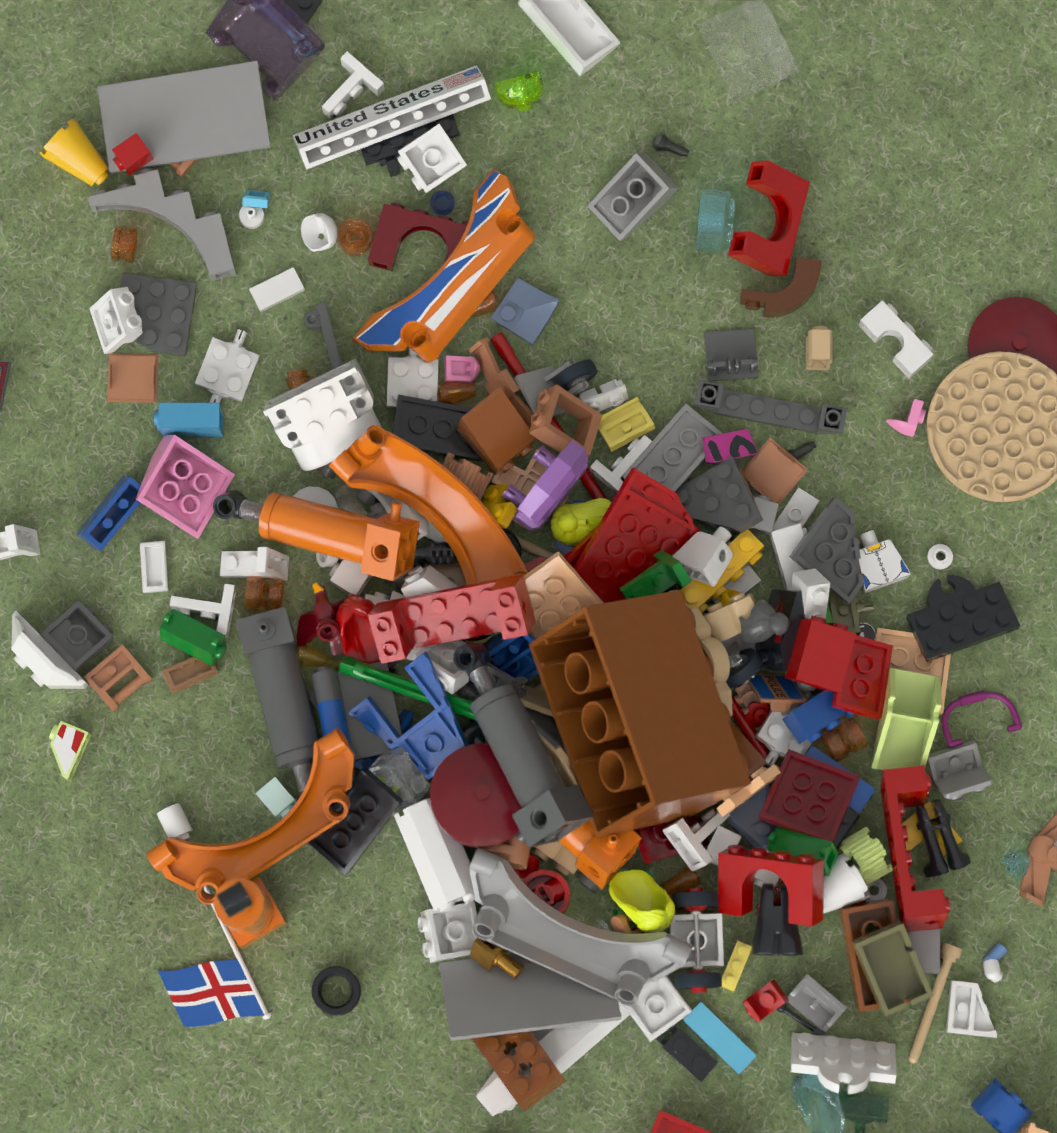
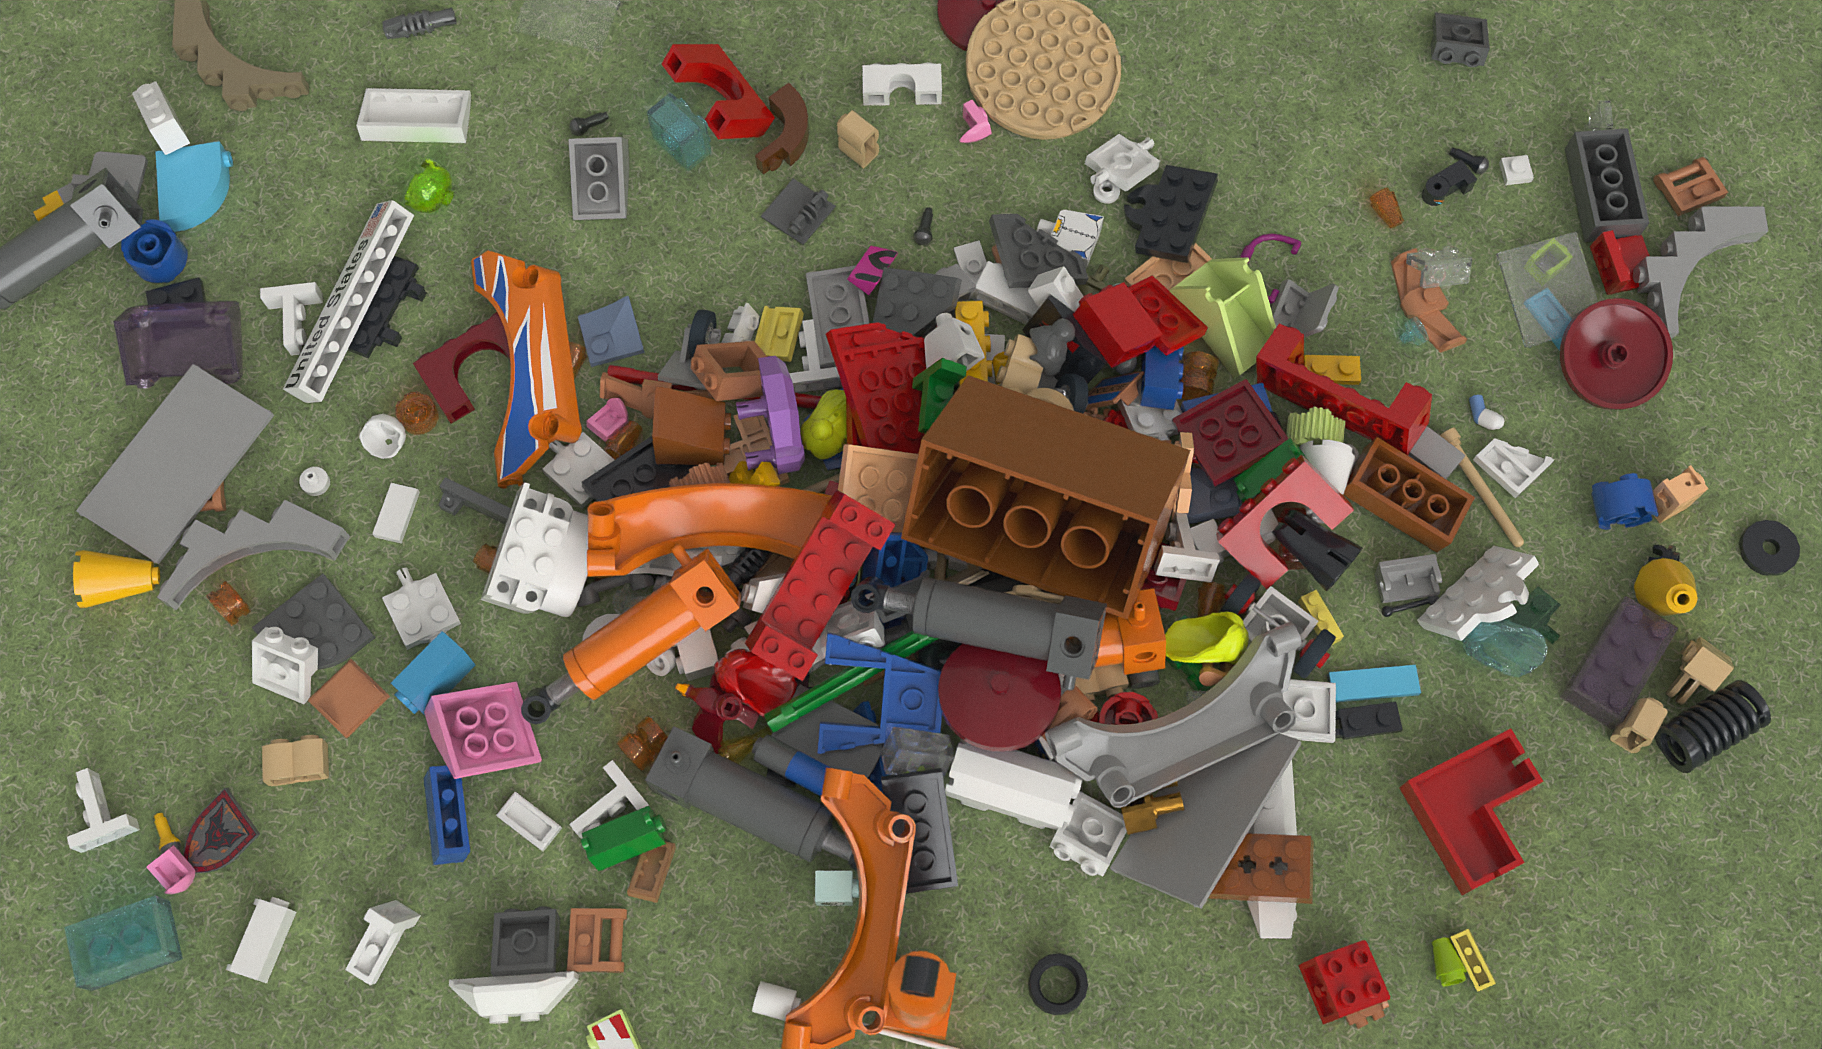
camera: 50 degrees left, 10 degrees down
(64, 385) = (295, 761): none -> tan brick
(131, 154) = (160, 527): red brick -> none
(256, 198) = (304, 463): medium azure tile -> none
(260, 564) = (617, 719): white bracket -> none
(431, 159) = (414, 298): white plate -> none
(442, 203) = (458, 323): clear blue plate -> none
(765, 1001) = (1373, 617): red bracket -> none
(770, 411) = (830, 247): dark grey slope -> none
(773, 471) = (923, 249): nougat piece -> none
(891, 968) = (1441, 482): olive piece -> none
(937, 863) = (1325, 362): black piece -> none
(970, 550) = (1122, 162): none -> white plate

